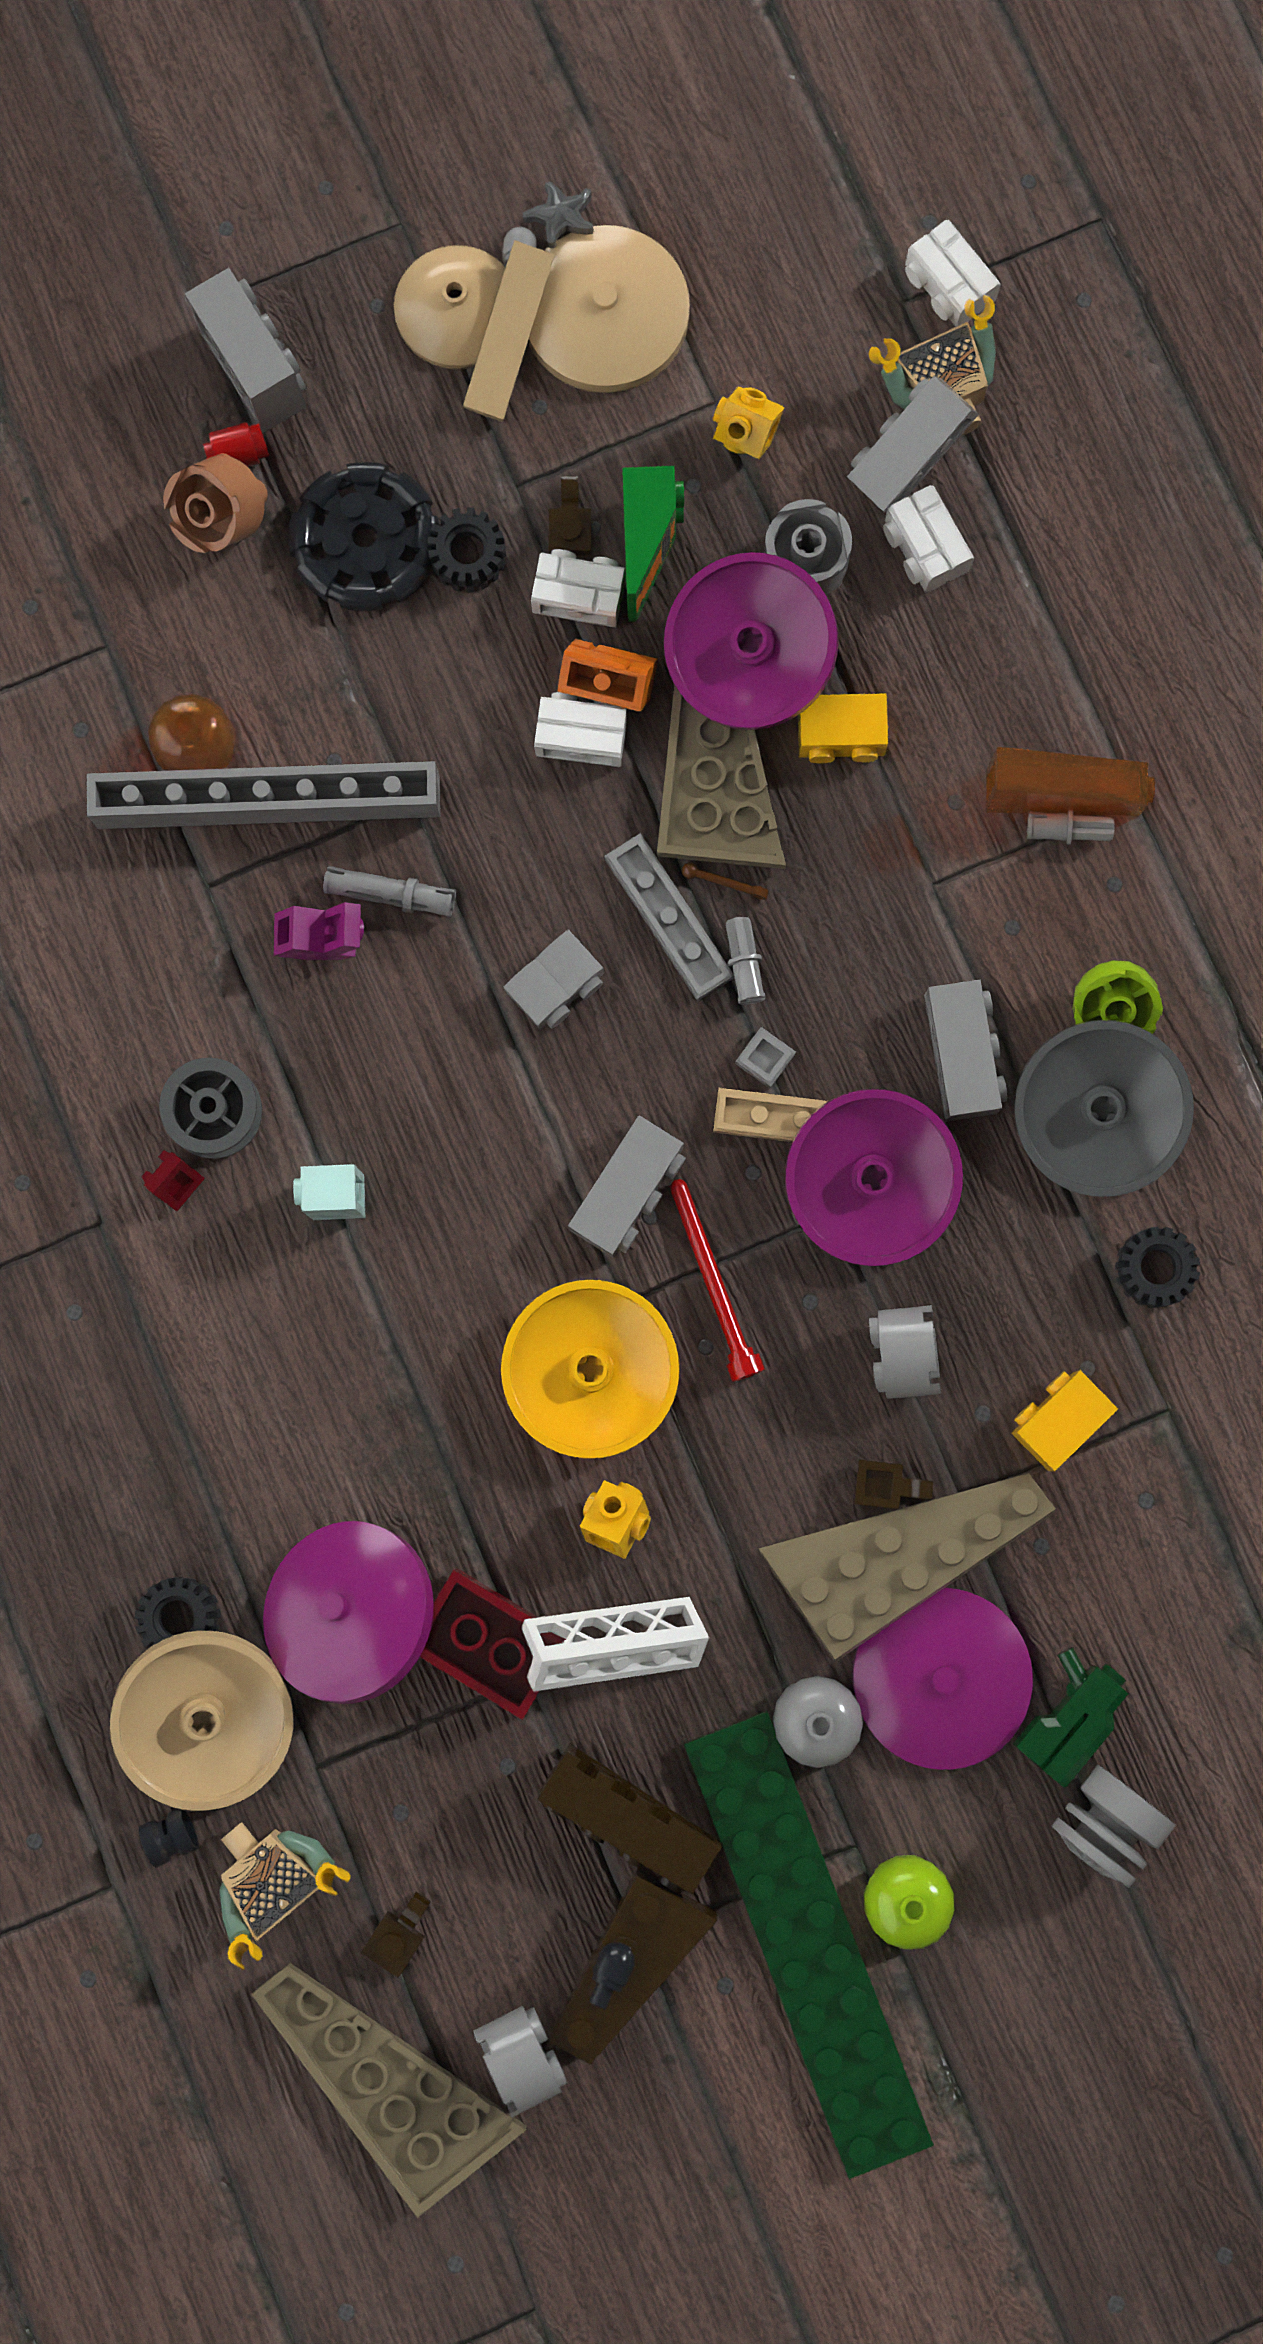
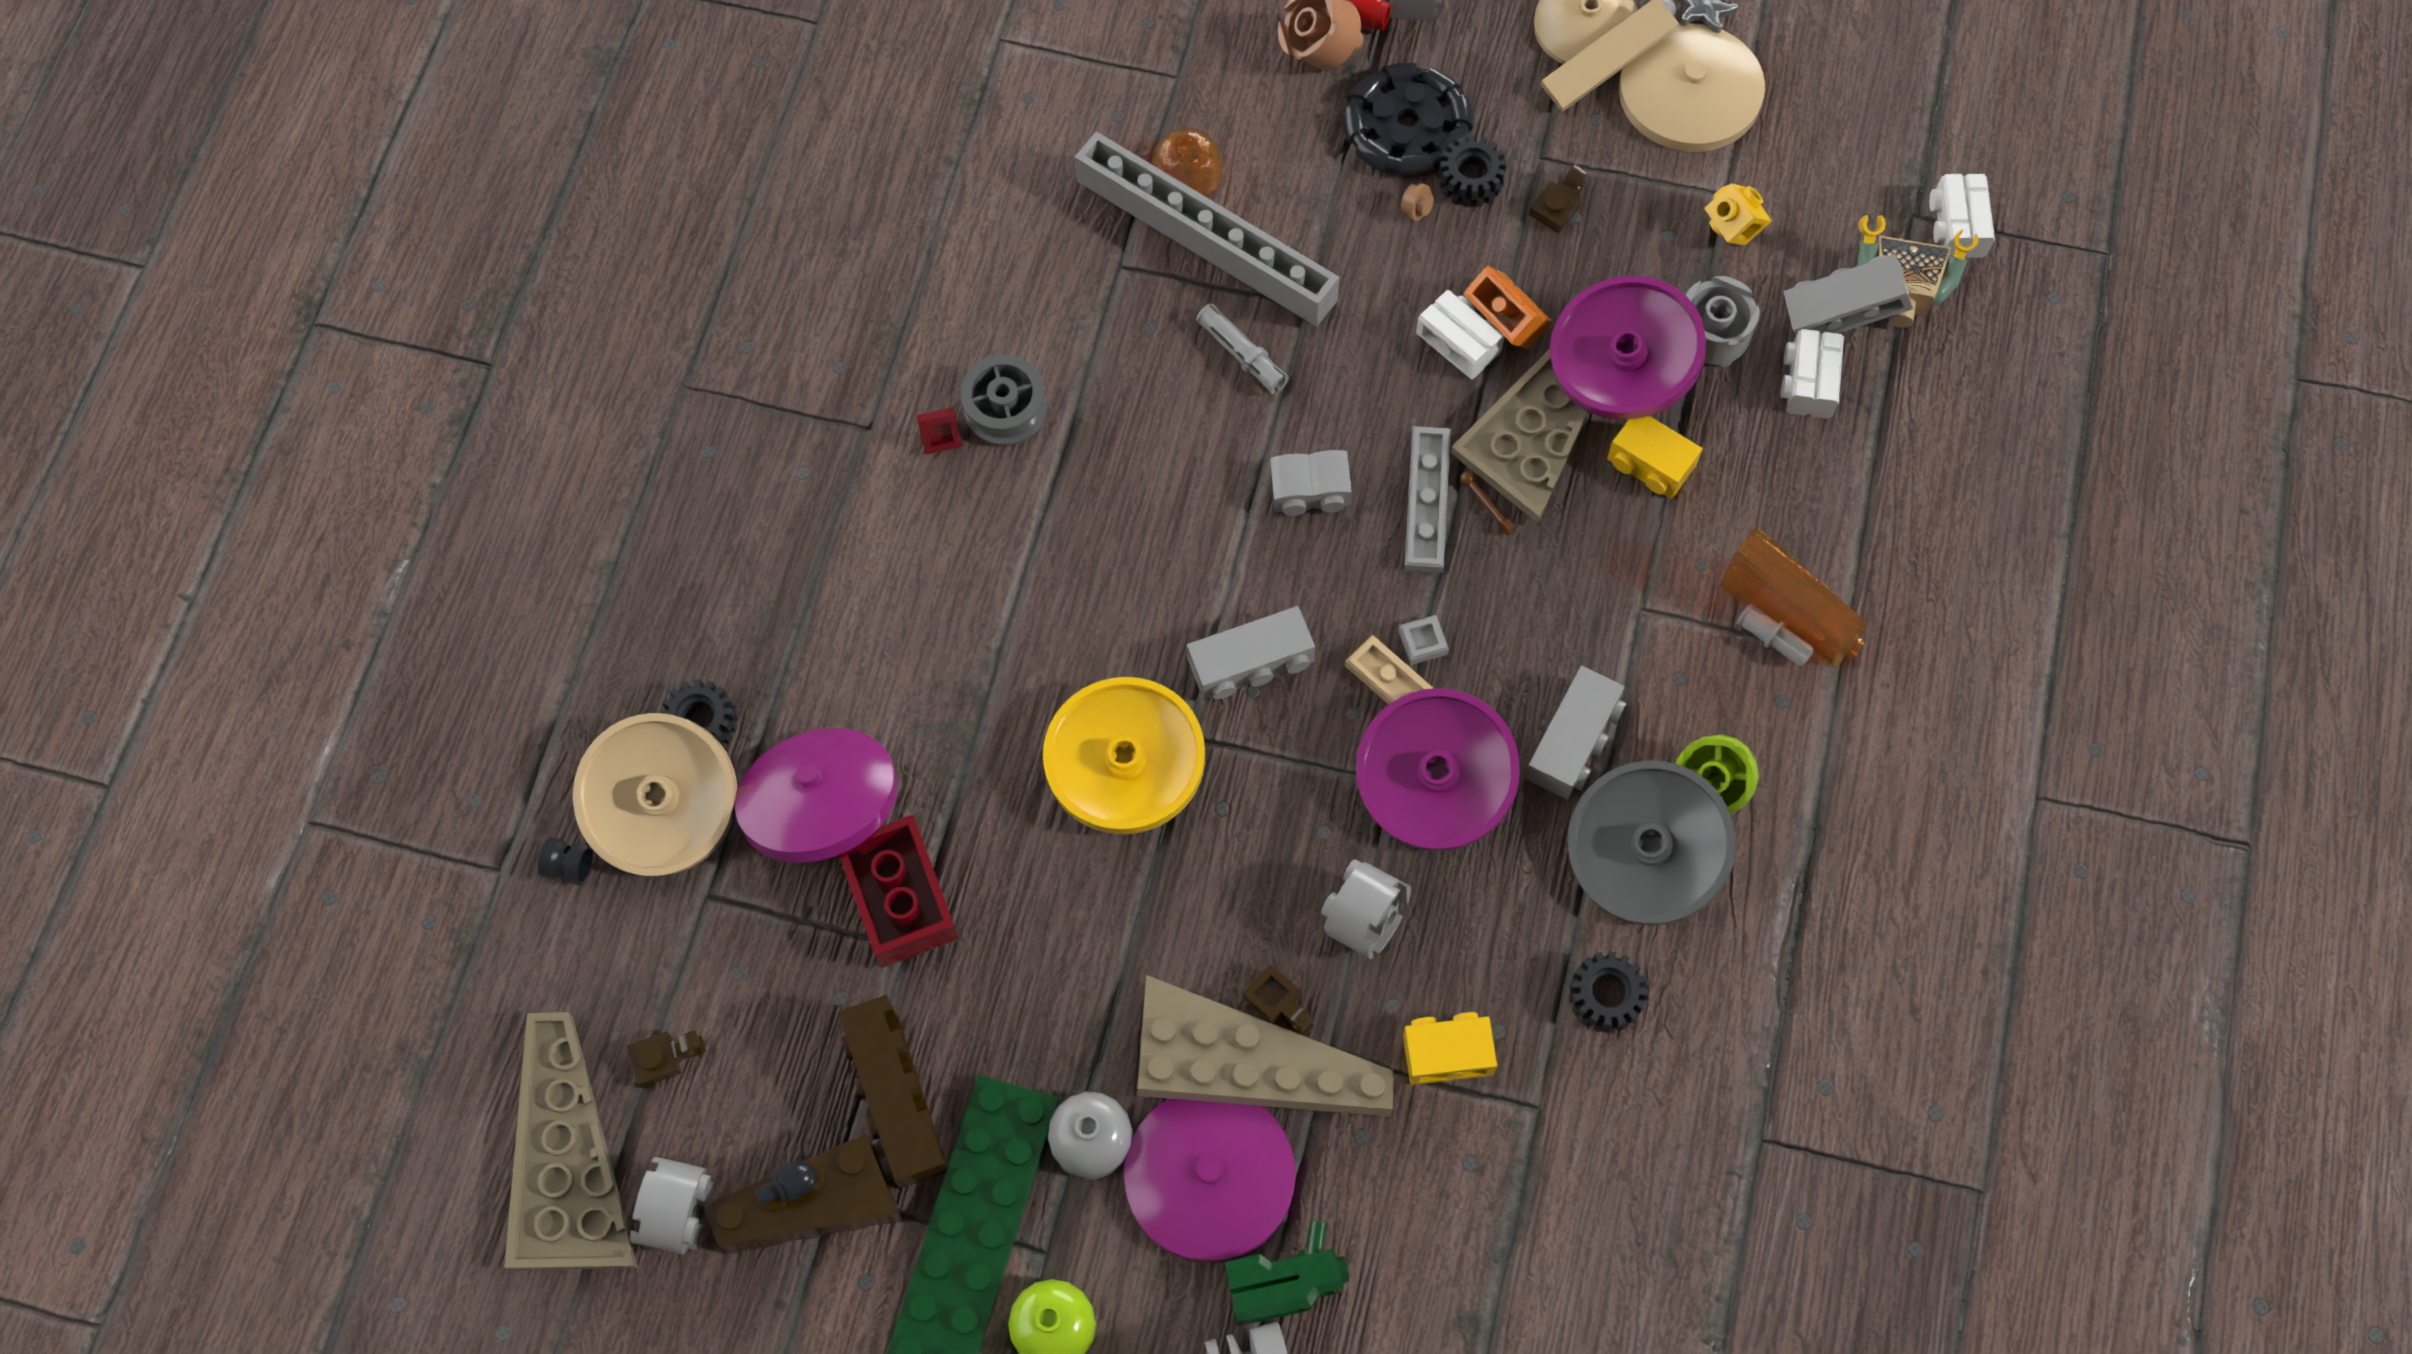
camera: 35 degrees right, 15 degrees down
(269, 1884) = (604, 945): torso -> none
(318, 933) = (1169, 340): magenta brick -> none
(330, 1192) = (1040, 506): light aqua brick -> none
(440, 620) = (1417, 201): none -> medium nougat plate
(578, 588) = (1531, 243): white brick -> none
(615, 1518) = (1057, 871): yellow brick -> none
(621, 1651) = (983, 961): white fence -> none
(650, 518) = (1608, 234): green slope -> none
(742, 1359) = (1240, 835): red piece -> none
(744, 961) = (1459, 563): light grey axle -> none

